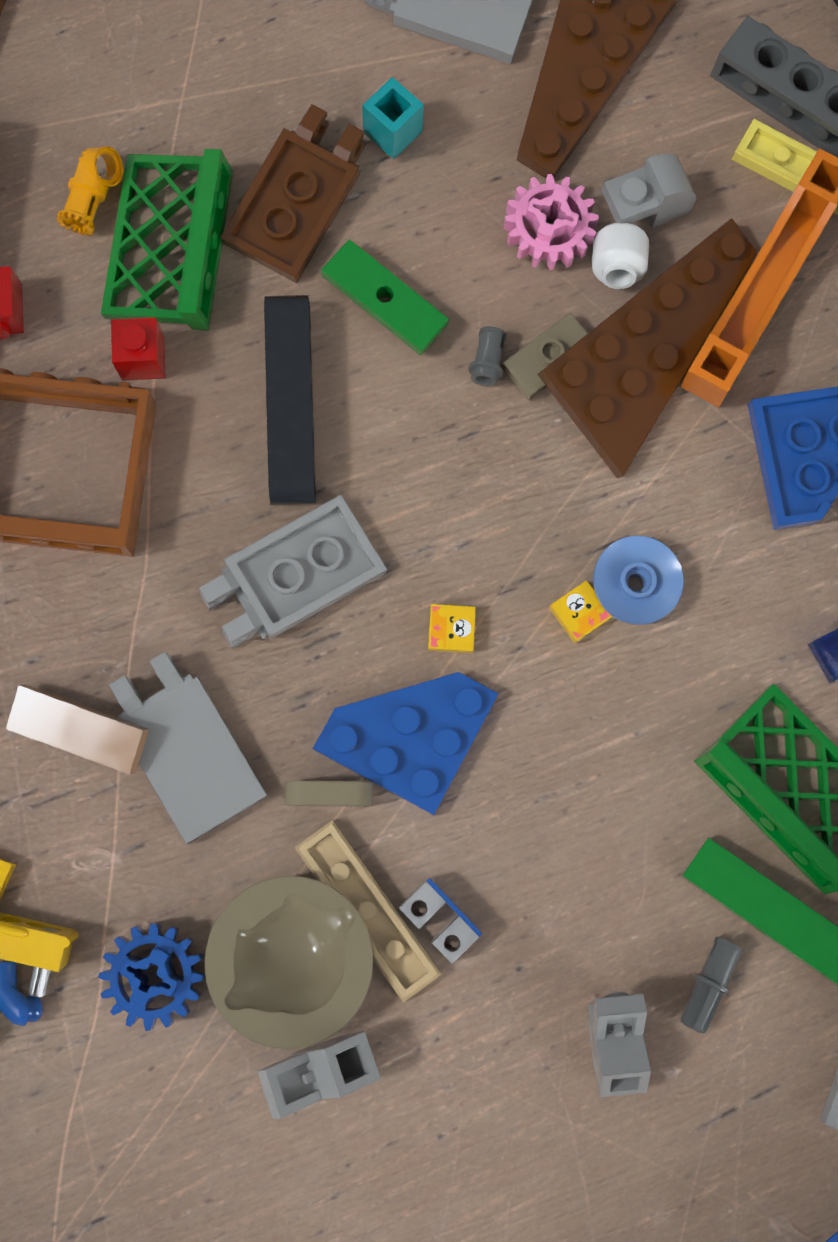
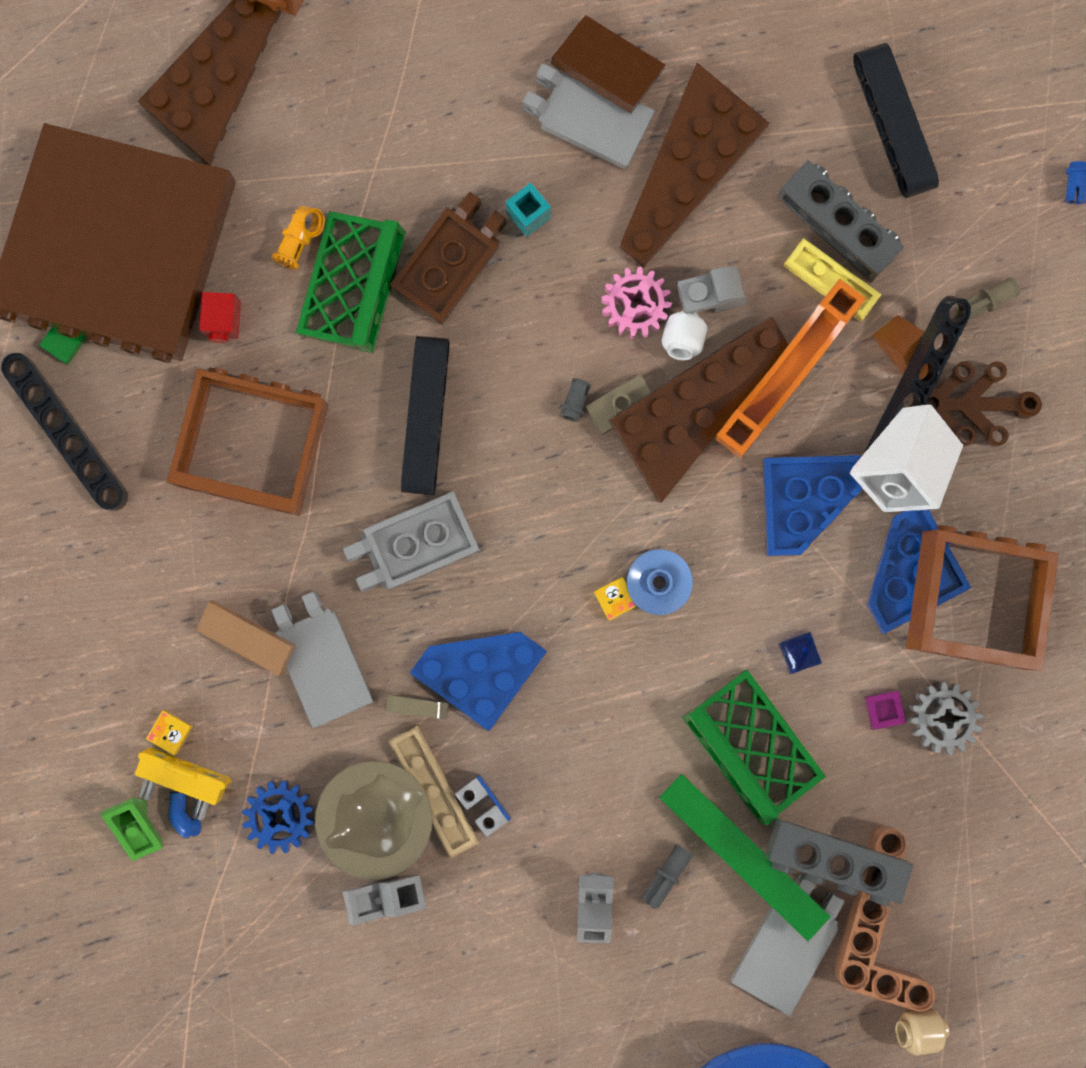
camera: 20 degrees right, 5 degrees up
(138, 348) = (319, 365): red brick -> none
(367, 280) = (491, 332): green tile -> none
(451, 628) = (520, 599): yellow tile -> none

